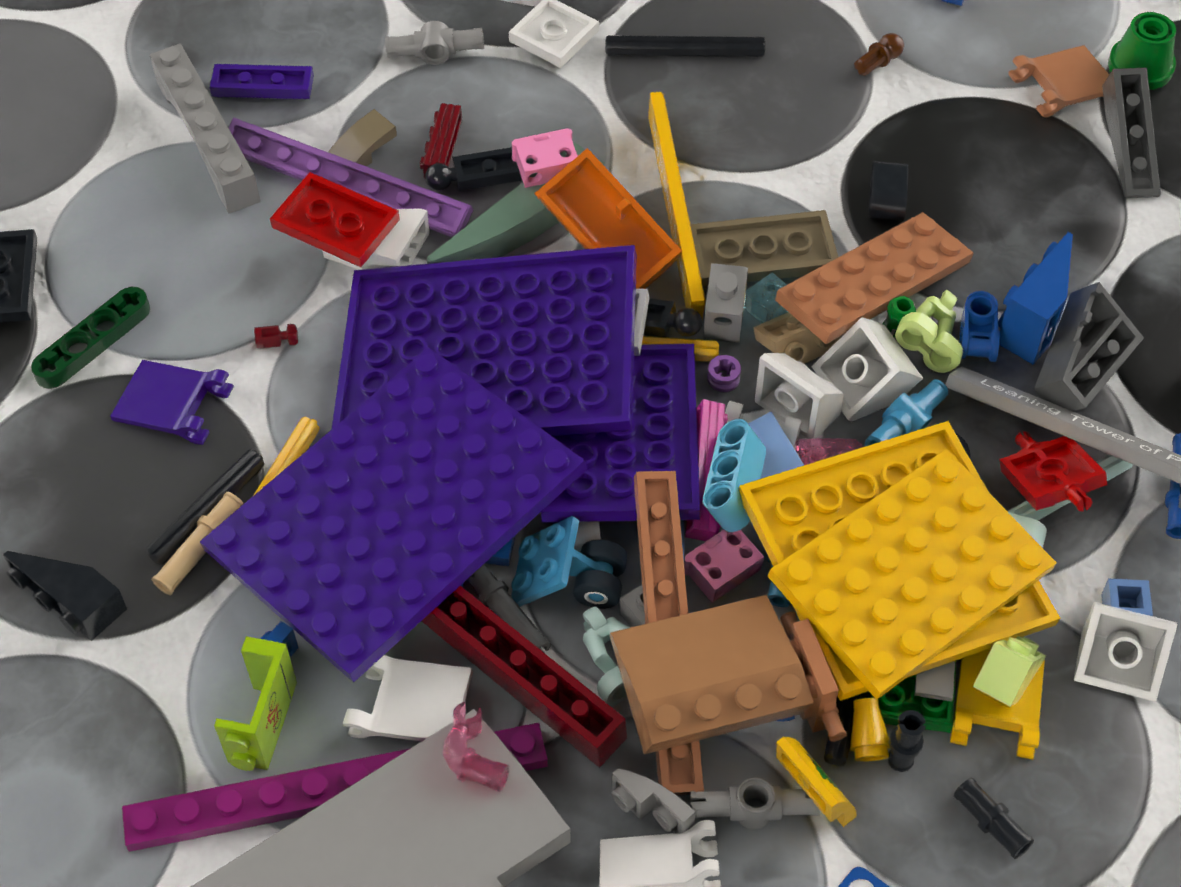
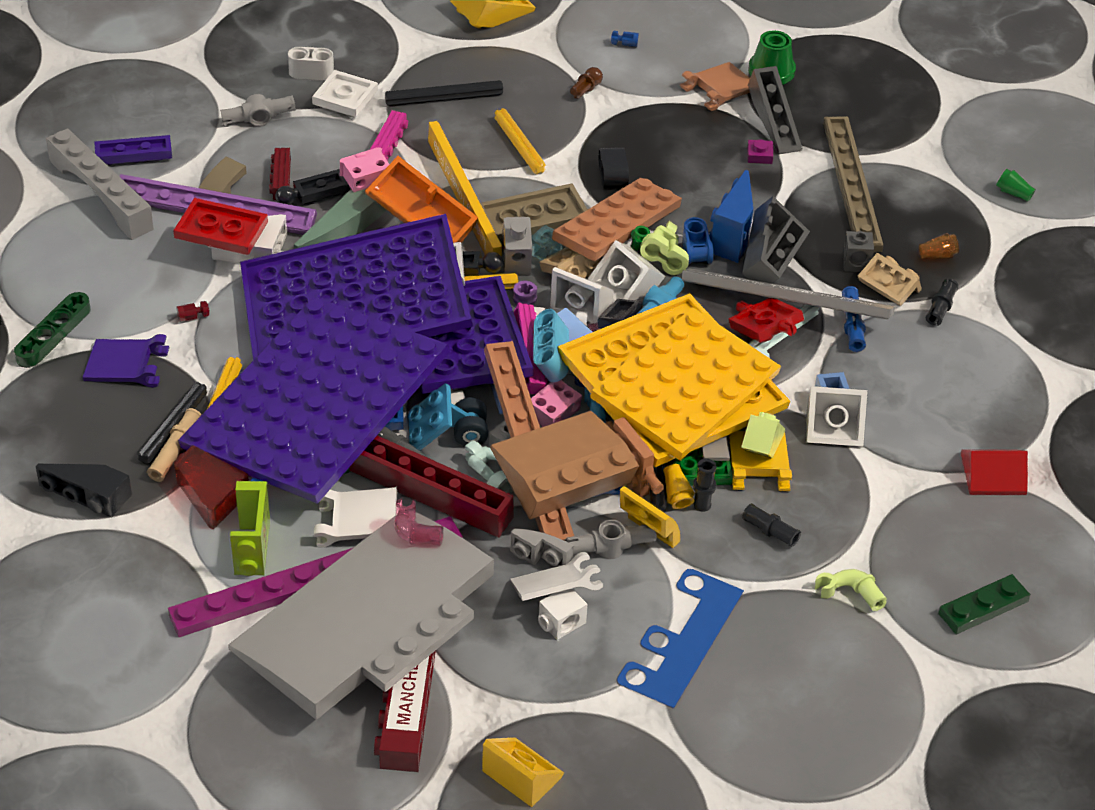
camera: 15 degrees left, 10 degrees down
(225, 614) = (208, 484): none -> clear red slope
(595, 104) = (390, 133): none -> dark pink piece
(770, 133) = (520, 141): none -> yellow axle
(845, 431) = (618, 311): none -> black tile
(1099, 192) = (760, 151): none -> magenta plate

